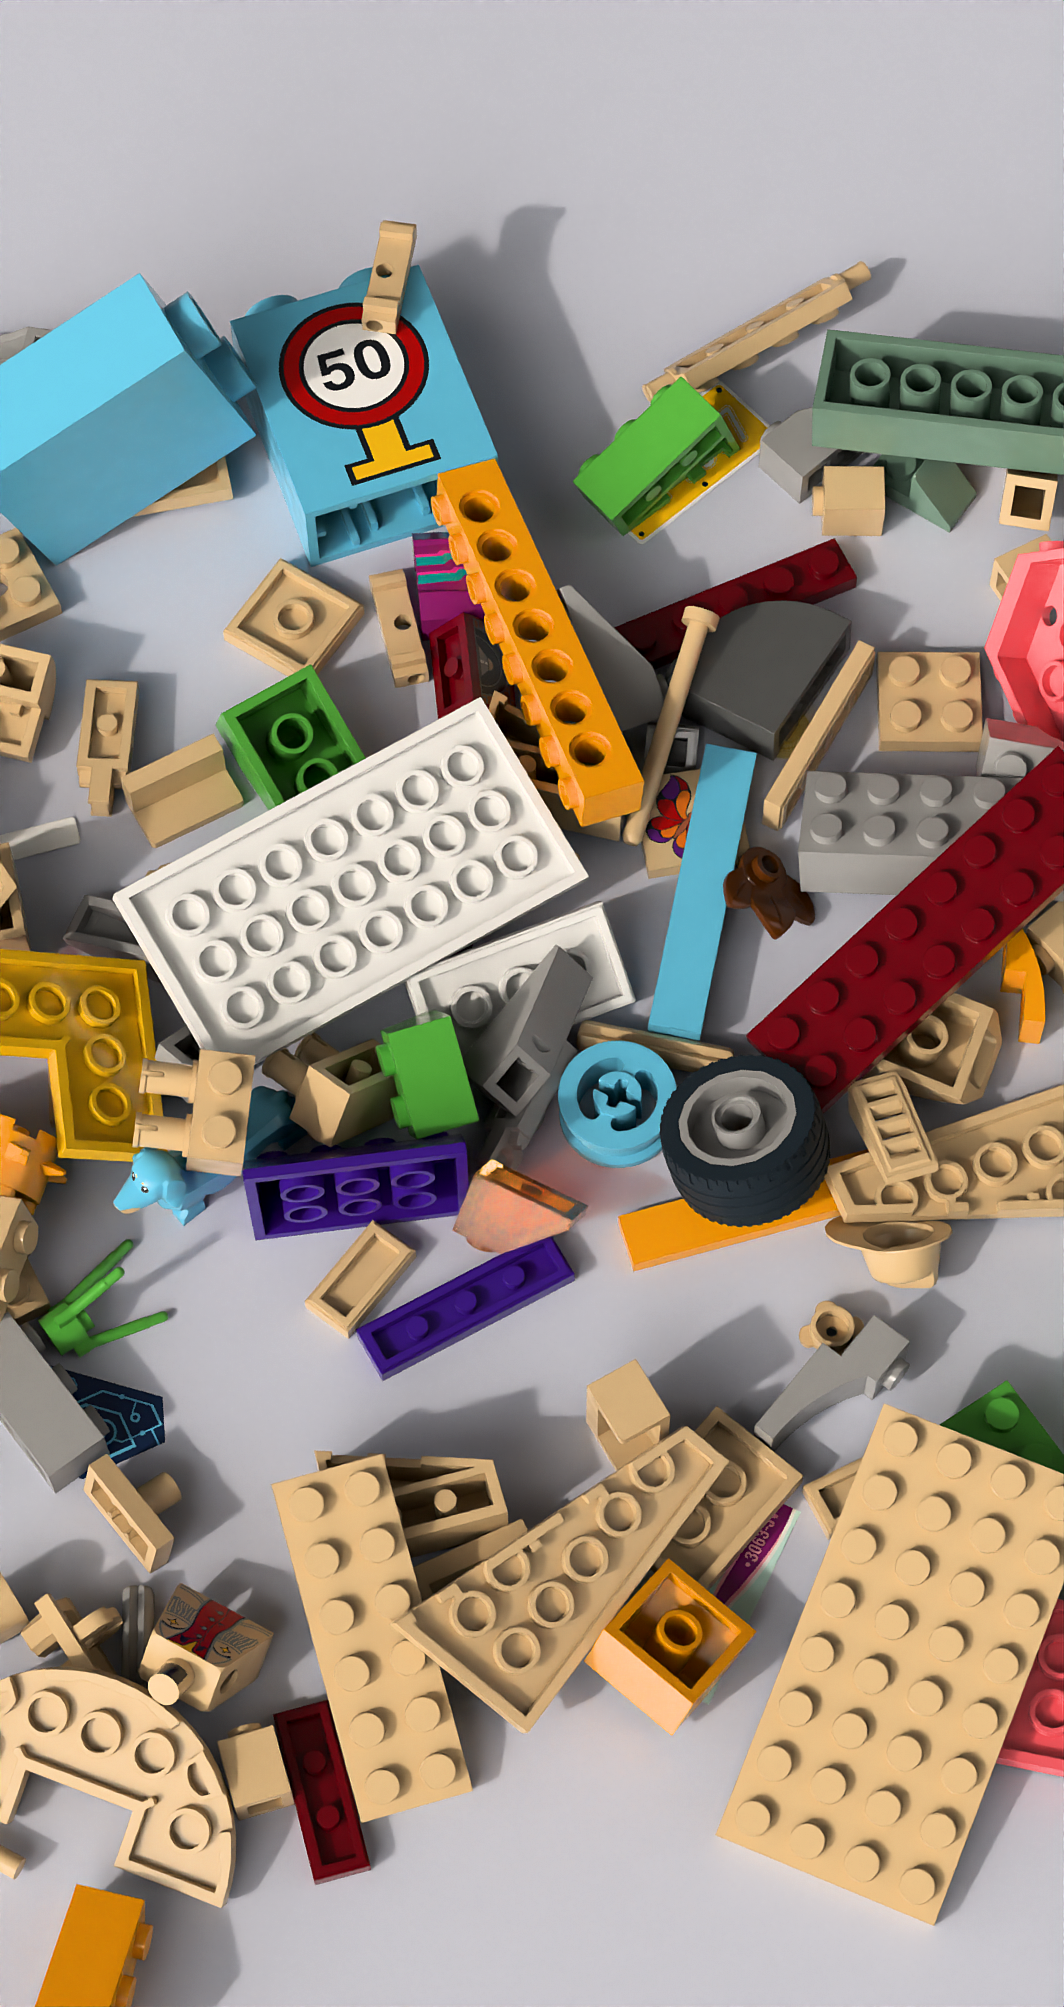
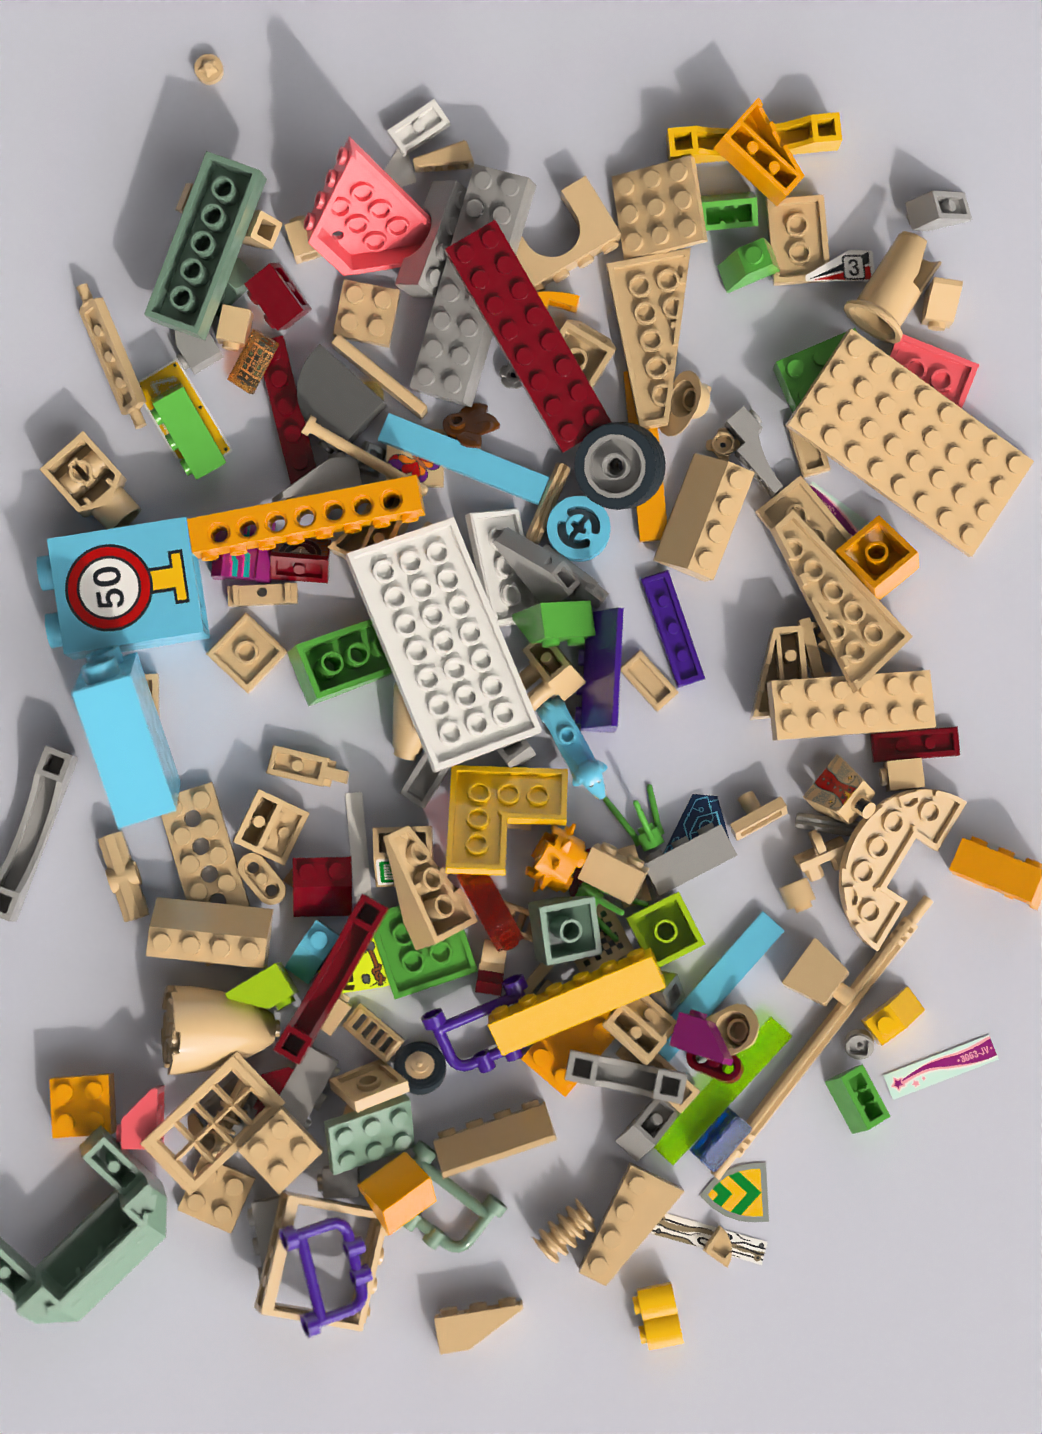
camera: 80 degrees left, 20 degrees up
(181, 791) = (347, 730): tan panel -> none
(217, 1128) = (569, 735): tan brick -> none
(386, 295) = (67, 560): tan piece -> none
(513, 1210) = (634, 591): clear orange slope -> none
(536, 334) = (91, 483): none -> tan brick
(626, 1413) = (759, 556): tan panel -> none
(683, 1314) = (703, 516): none -> tan slope
(798, 536) = (253, 361): none -> clear orange tile
(881, 1098) = (604, 392): tan slope -> none
(920, 551) = (277, 297): none -> dark red brick

